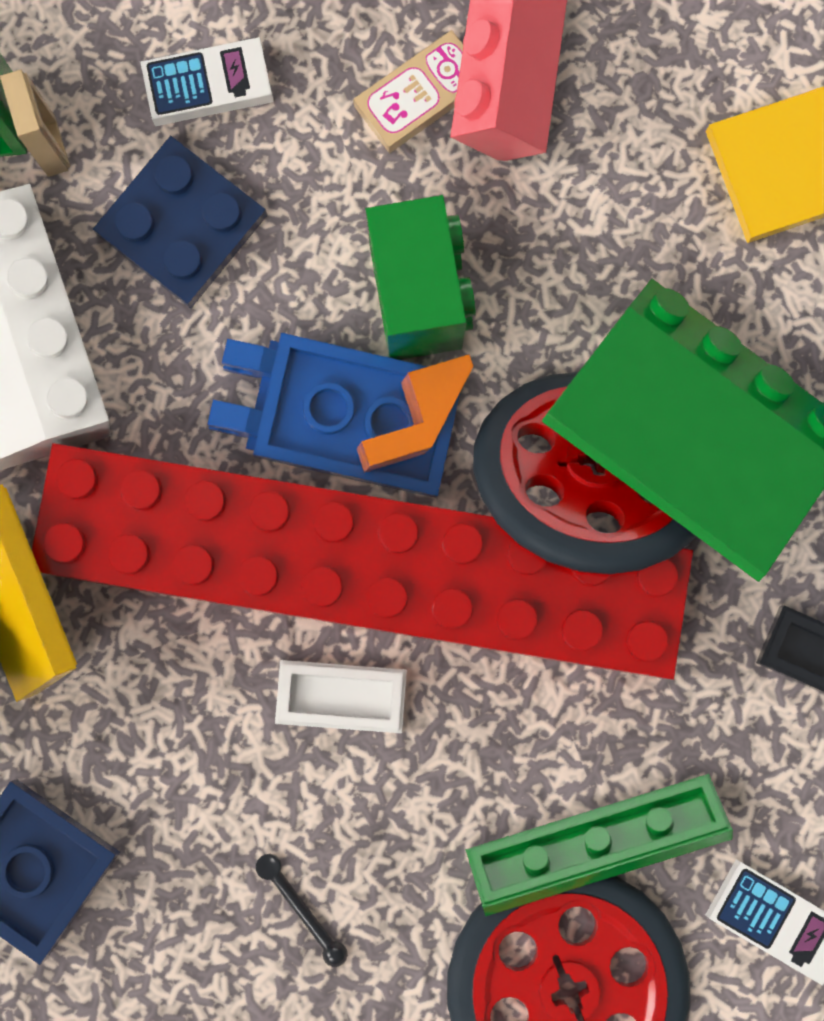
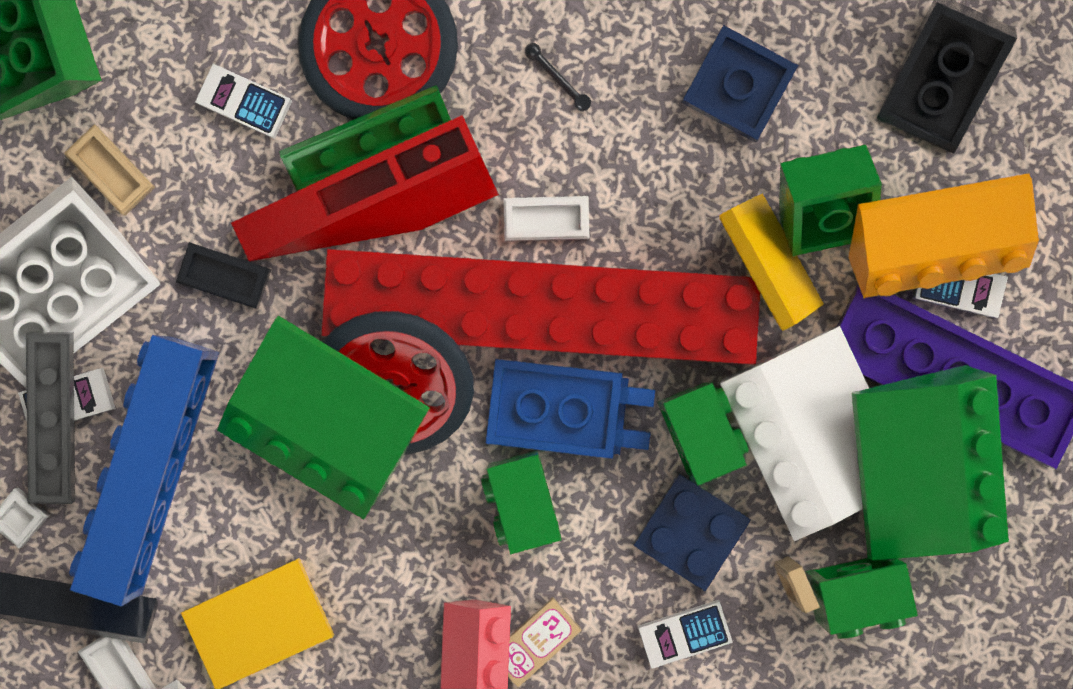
camera: 170 degrees right, 5 degrees up
(142, 351) = (703, 432): none -> green brick
(430, 398) = (505, 419): orange slope -> none
(590, 752) = (375, 198): none -> red wedge

